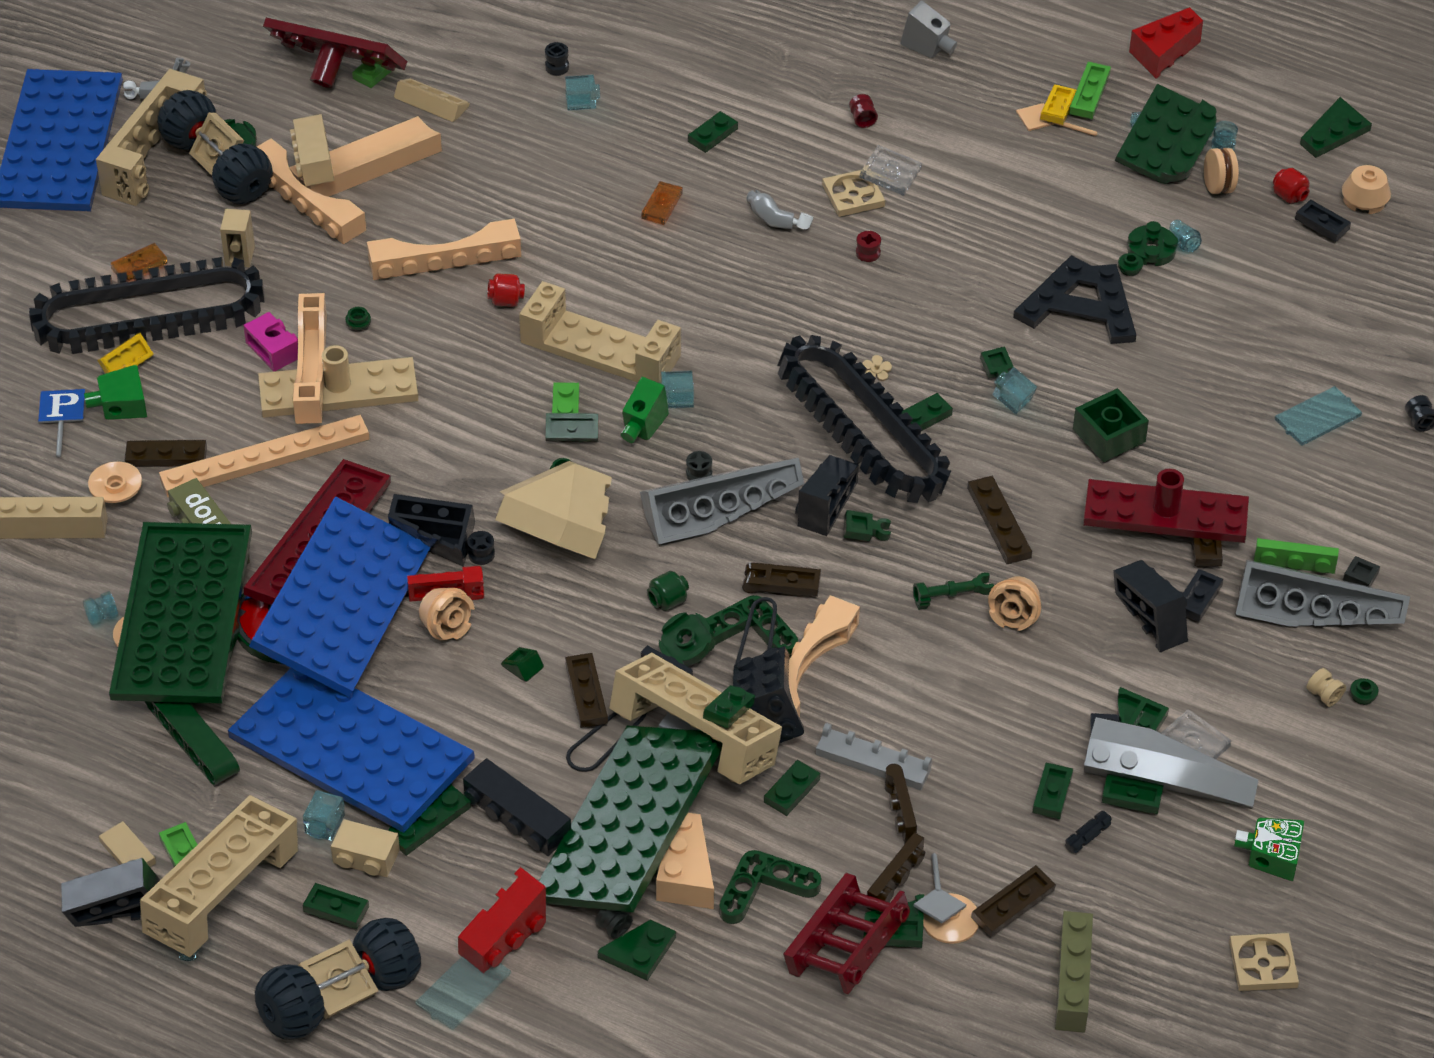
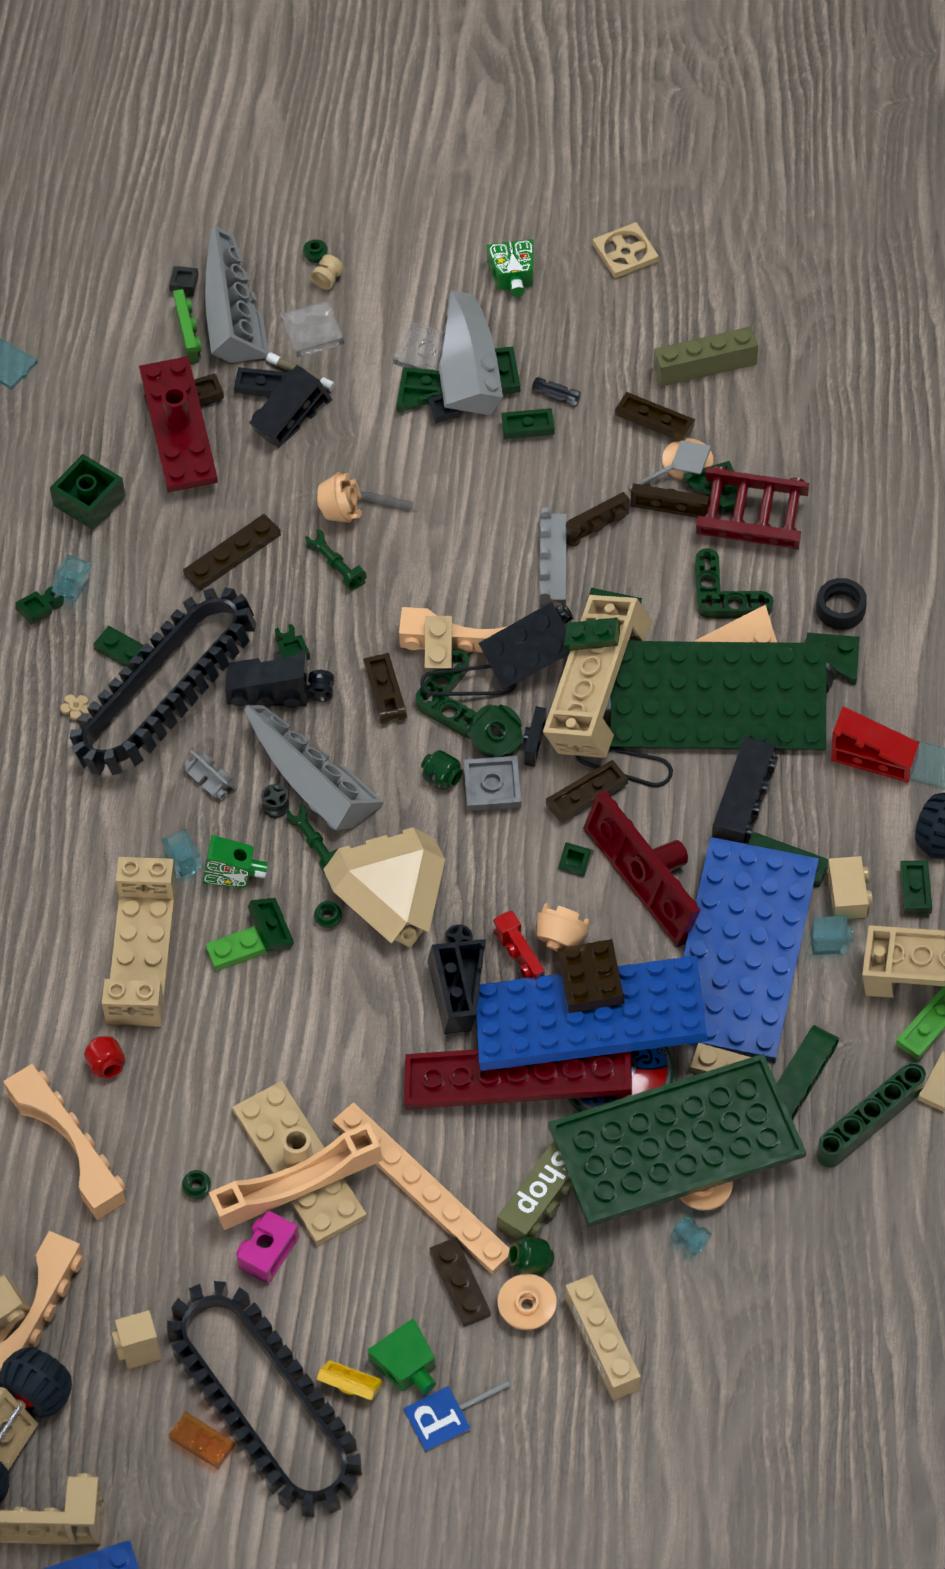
camera: 110 degrees left, 10 degrees up
(126, 776) = (868, 1126): none -> dark green beam
(151, 496) = (531, 1256): none -> dark green head
(247, 692) = (710, 1058): none -> tan plate
(375, 603) = (590, 976): none -> dark brown plate
(472, 692) = (644, 868): none -> dark red plate
(633, 623) = (492, 783): none -> flat silver plate
(643, 483) = (313, 838): none -> dark green piece
(696, 955) = (846, 587): none -> black tyre
(753, 434) = (217, 781): none -> light grey hinge
(802, 619) = (438, 642): none -> tan plate
(807, 532) = (320, 685): none -> black wheel
(1012, 652) = (388, 499): none -> light grey piece
(1203, 634) = (287, 365): none -> bar
(1257, 659) = (312, 329): none -> clear plate

